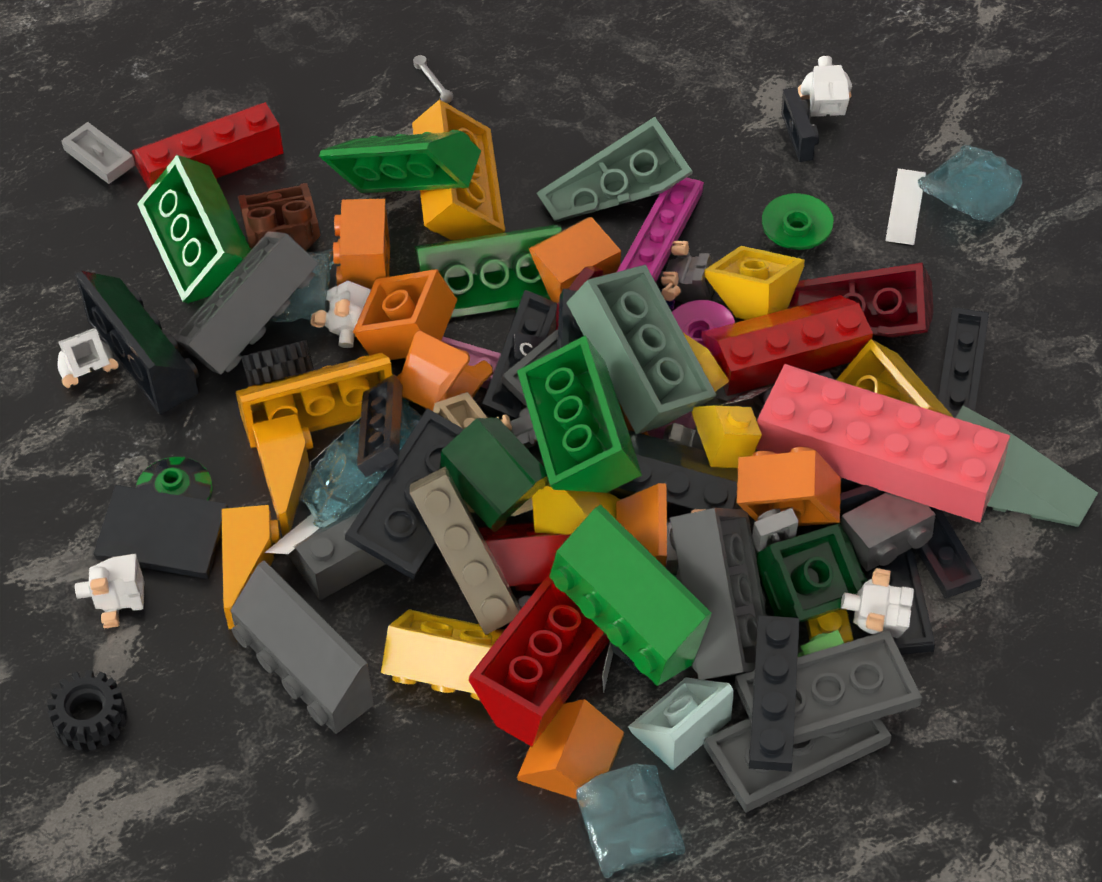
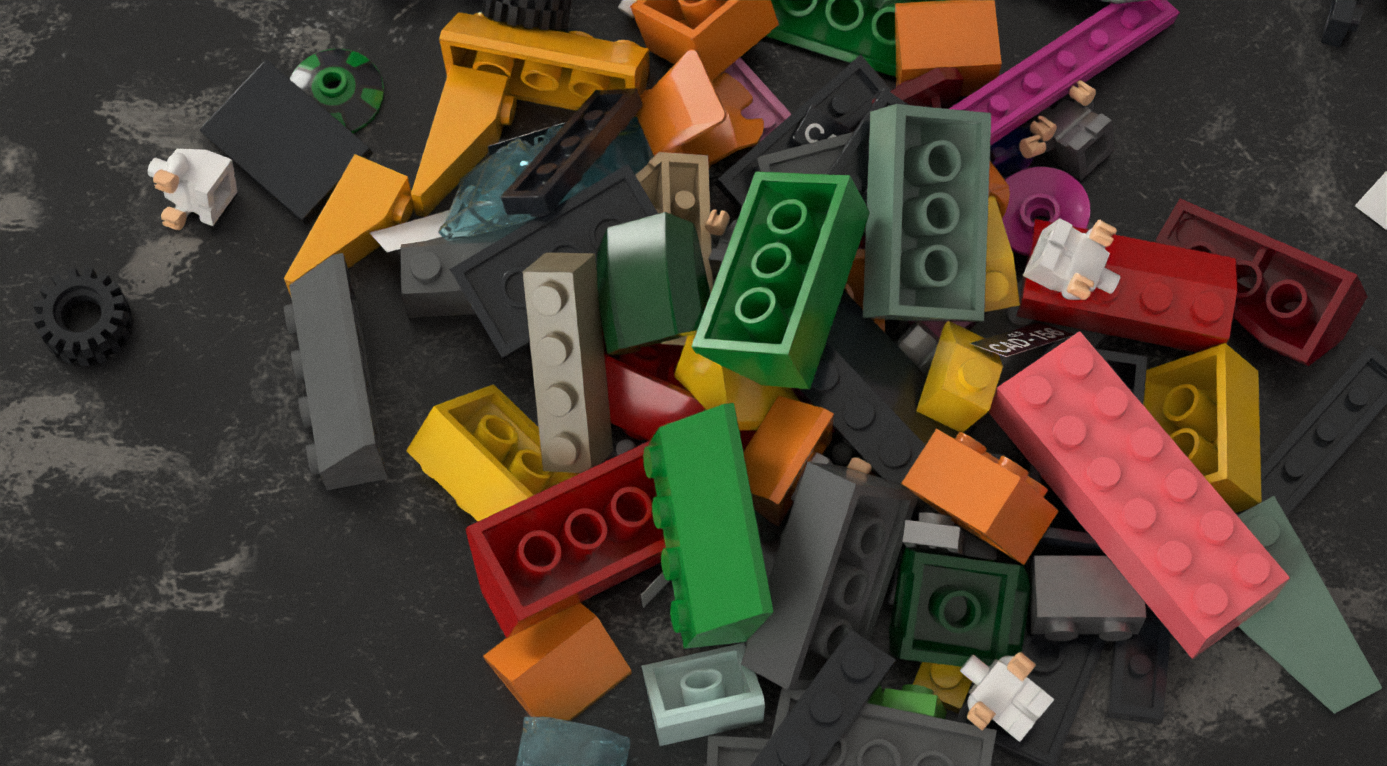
camera: 30 degrees right, 15 degrees up
(750, 328) = (1073, 260): none -> white piece
(755, 281) = (1149, 182): yellow slope -> none
(797, 221) = (1261, 109): green dish -> none

